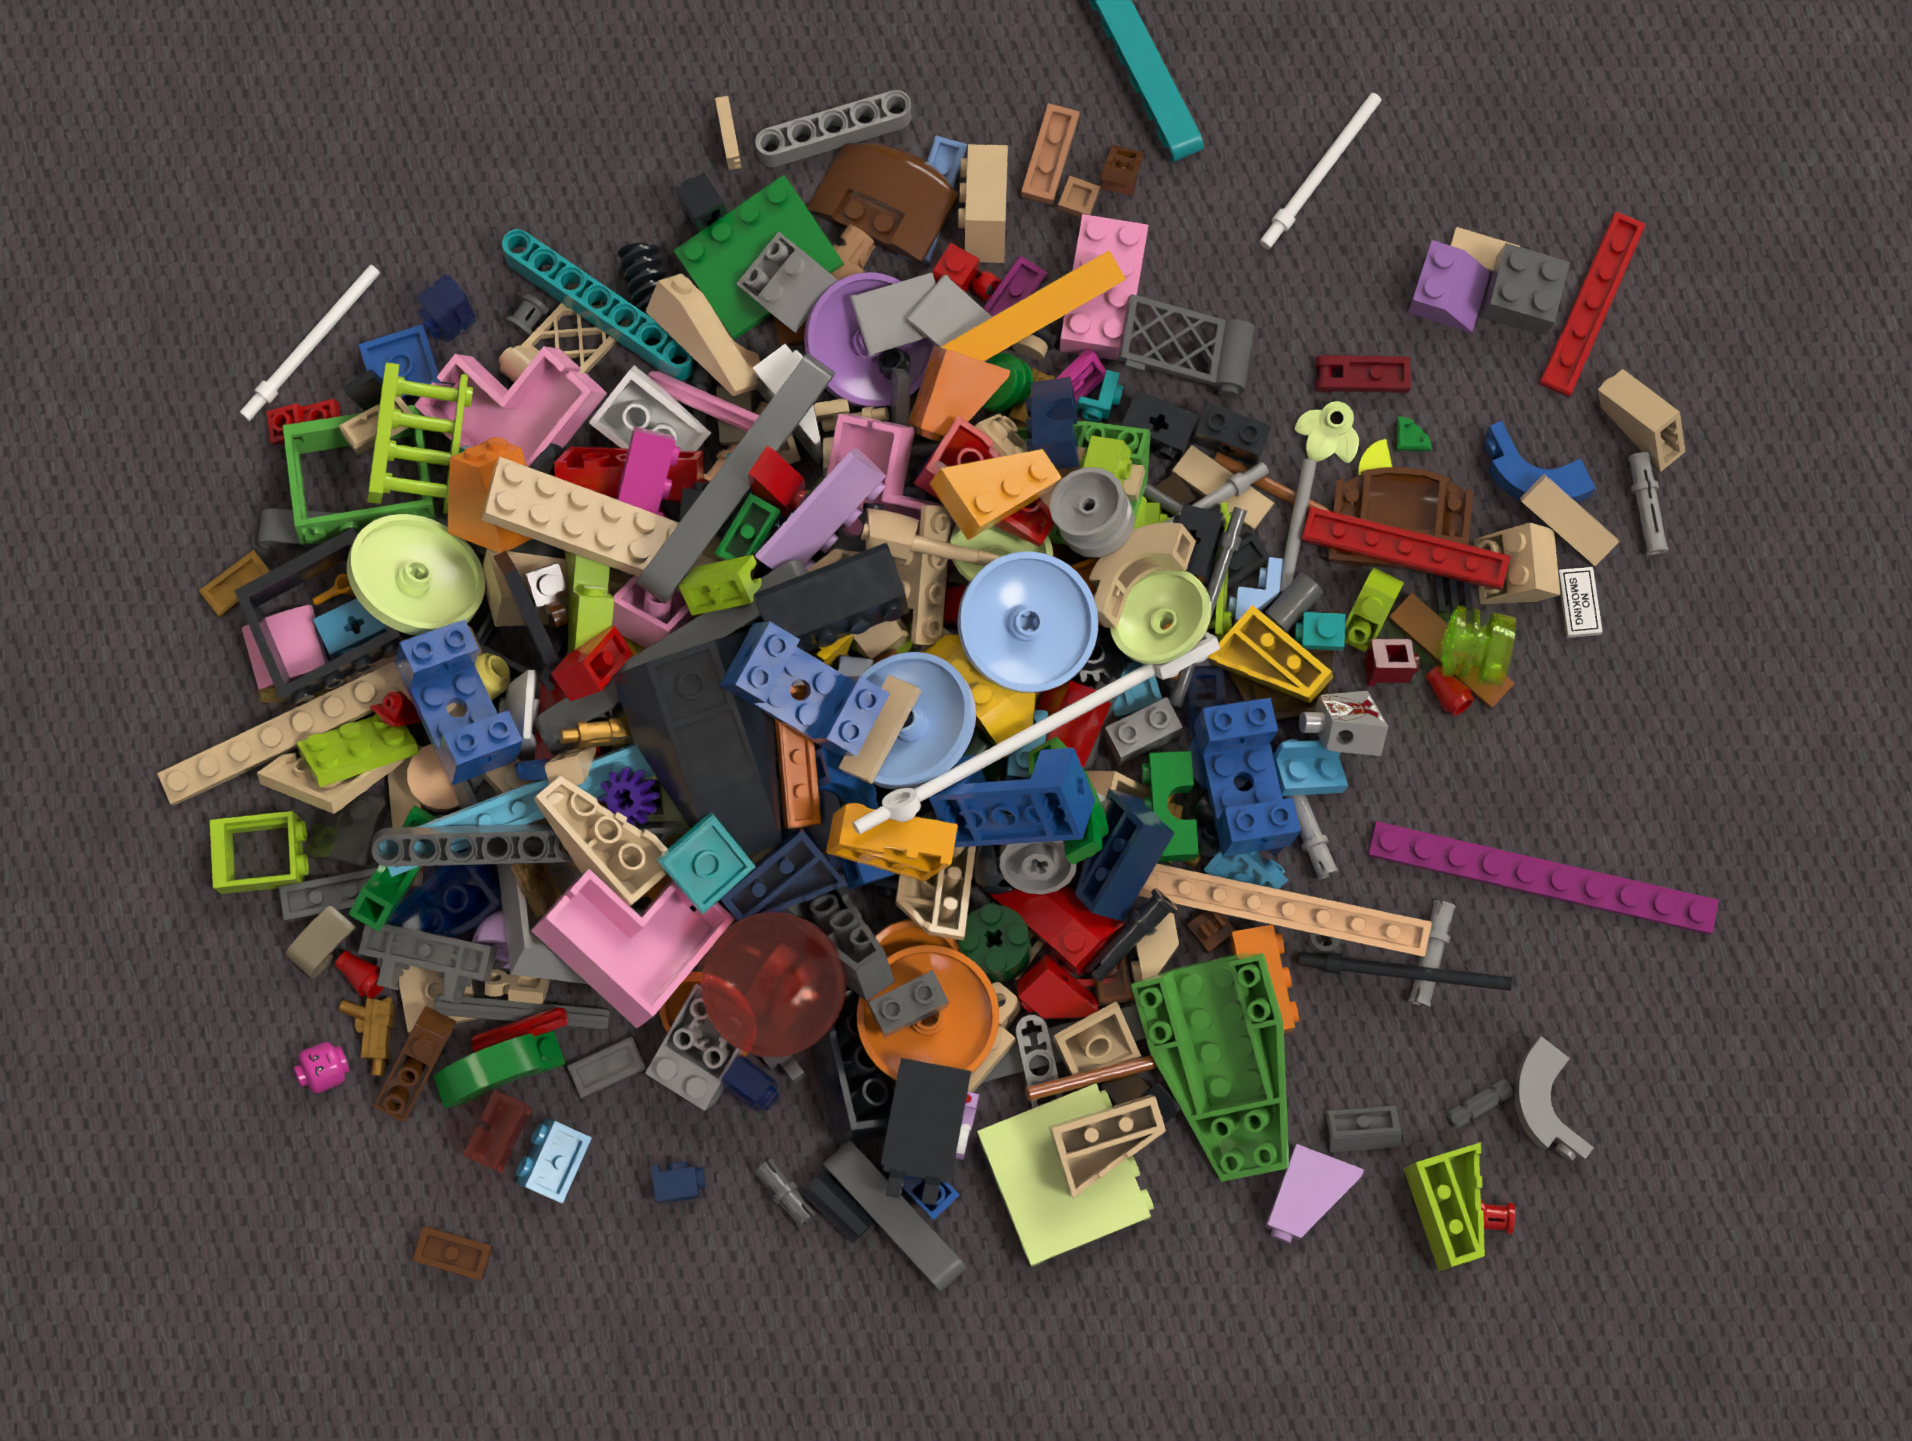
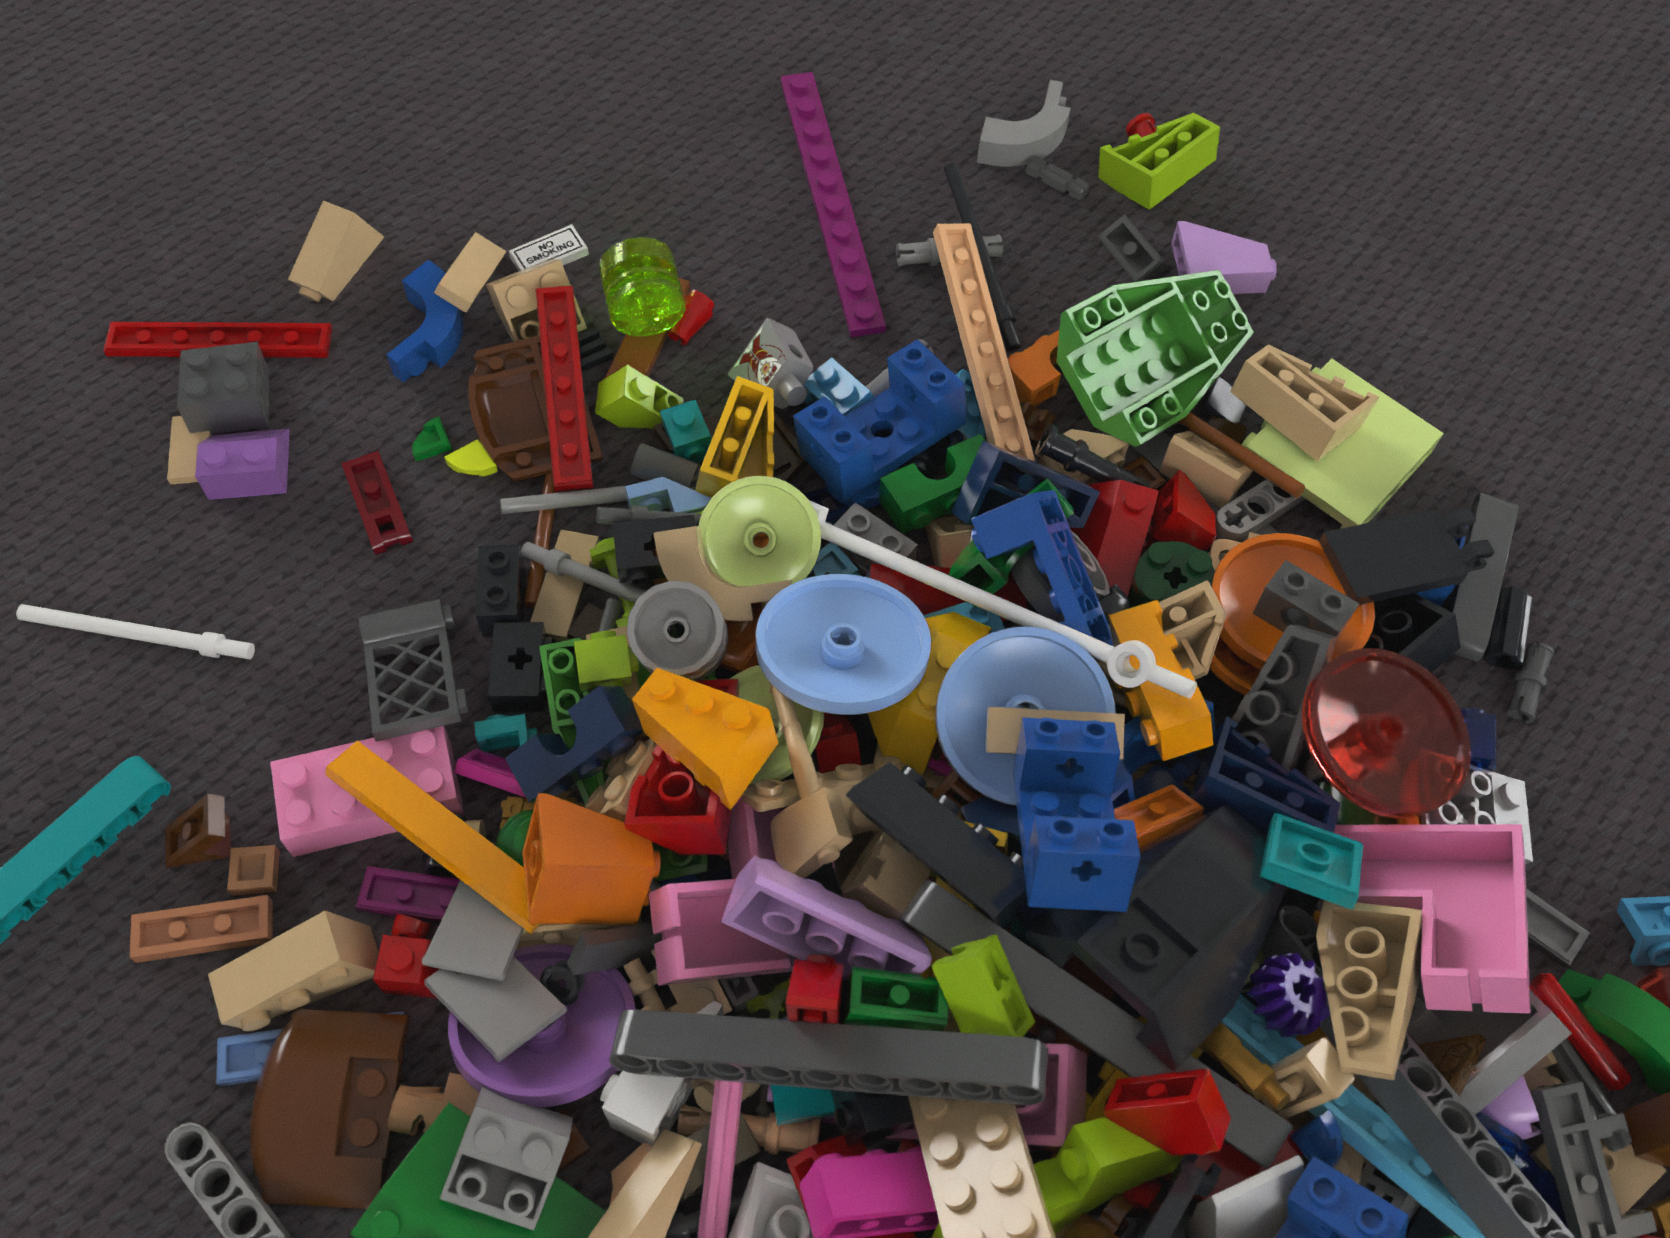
camera: 120 degrees left, 15 degrees down
(678, 1182) = (1601, 785): dark blue brick -> none
(1326, 437) = (462, 511): yellowish green plate -> none
(1390, 661) = (687, 370): dark red brick -> none
(1645, 491) = (416, 233): light grey pin -> none

